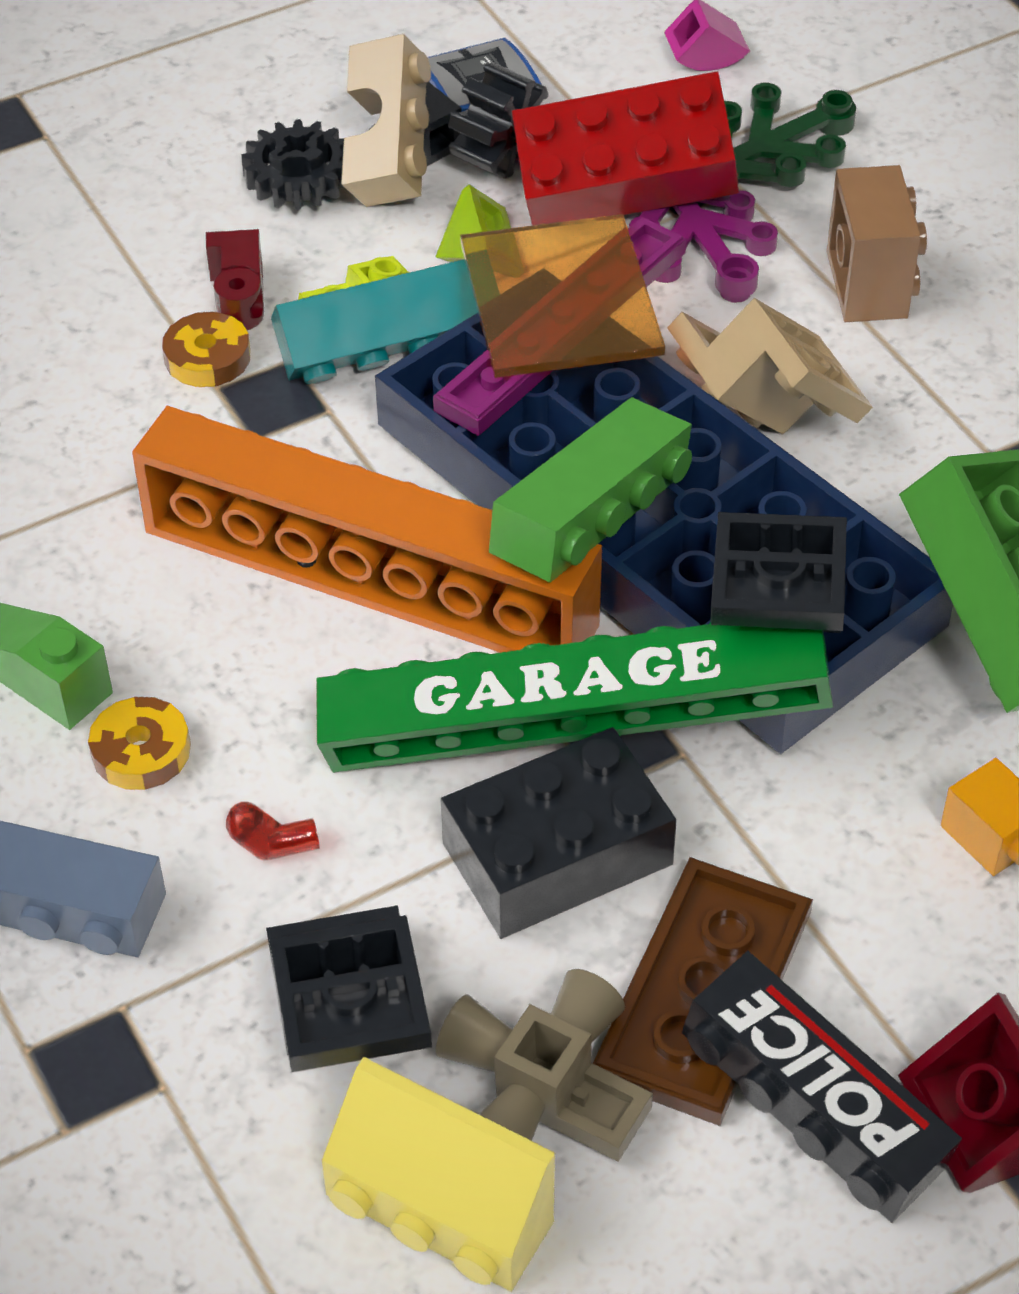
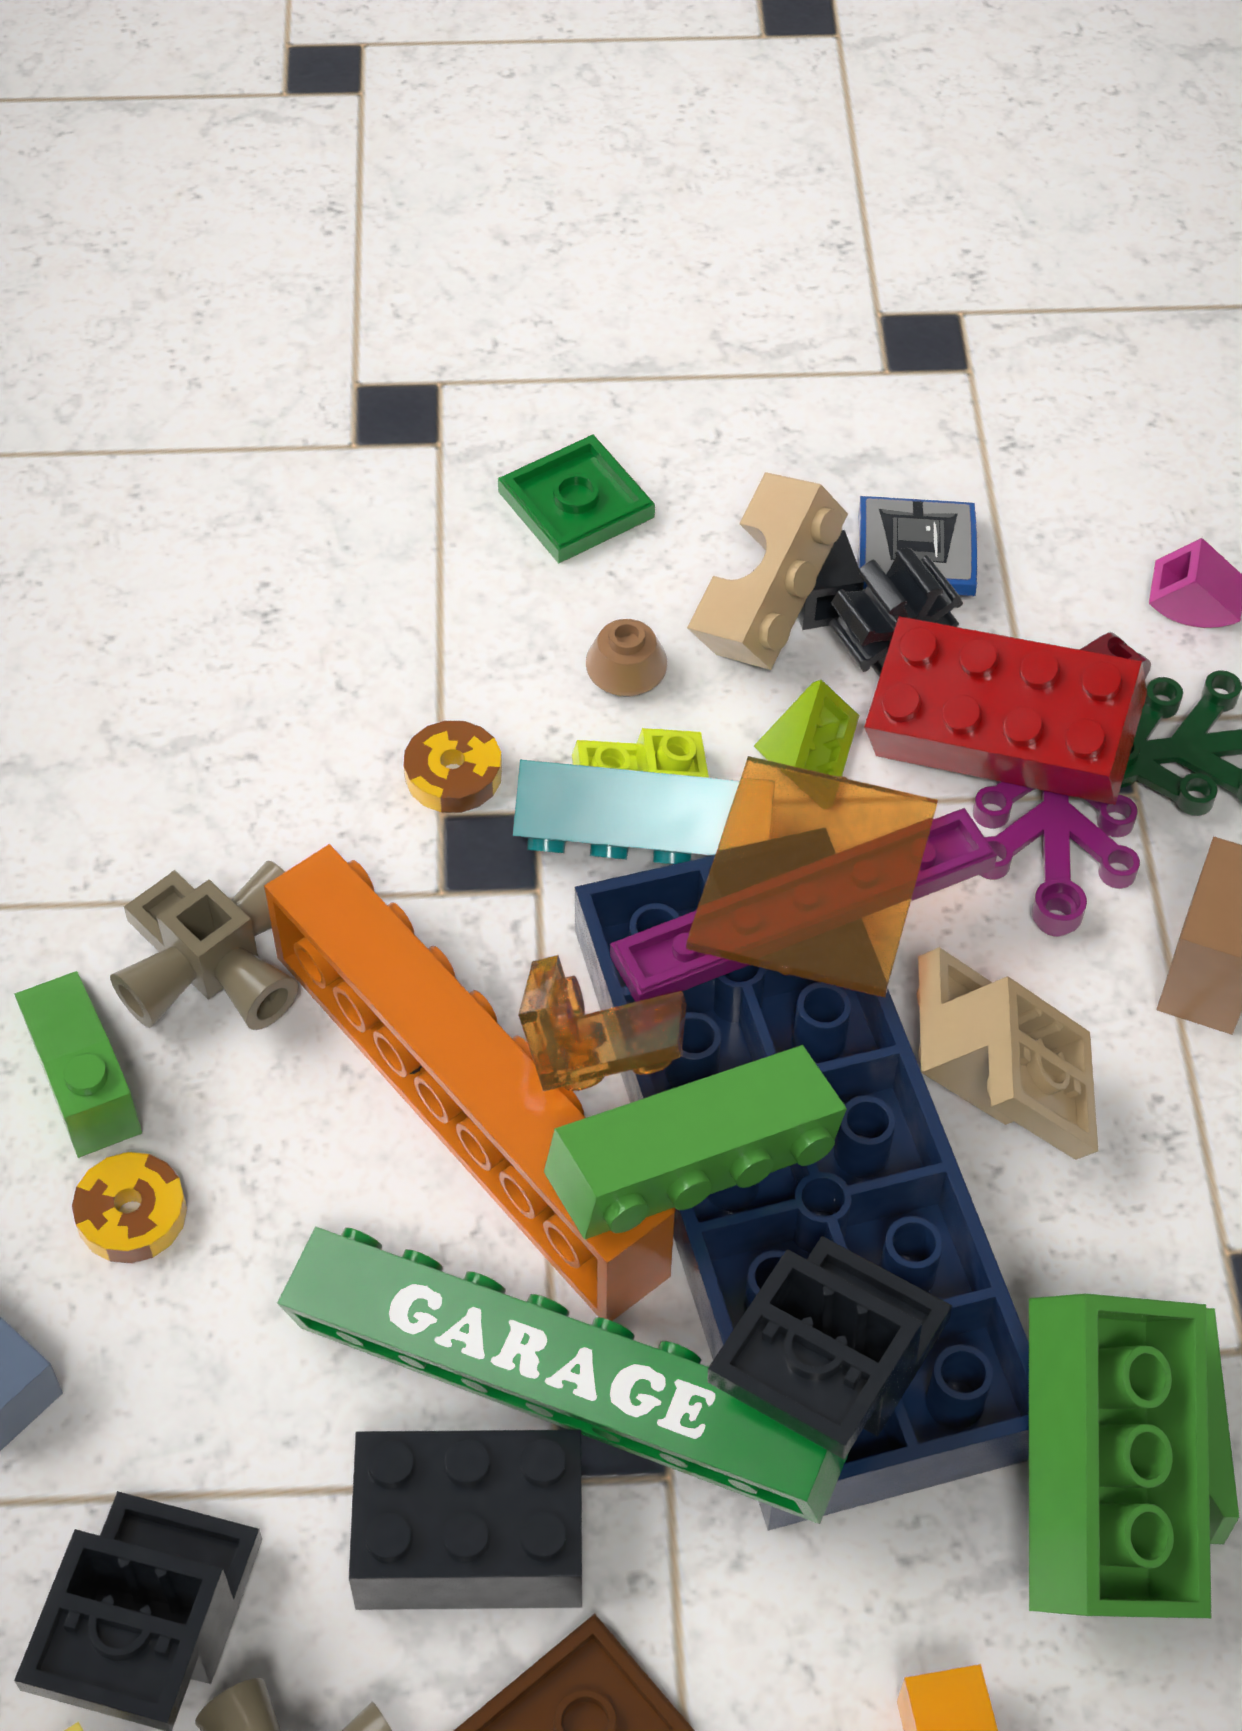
camera: 25 degrees right, 5 degrees up
(90, 533) = (206, 944): none -> dark tan brick
(186, 136) = (576, 498): none -> green tile
(237, 274) = (534, 688): dark red leg -> none
(266, 836) = (185, 1377): clear red arm -> none
(296, 164) = (659, 577): black gear -> none
(300, 227) = (626, 658): none -> medium nougat cone
(466, 465) = (583, 1049): none -> clear orange bracket

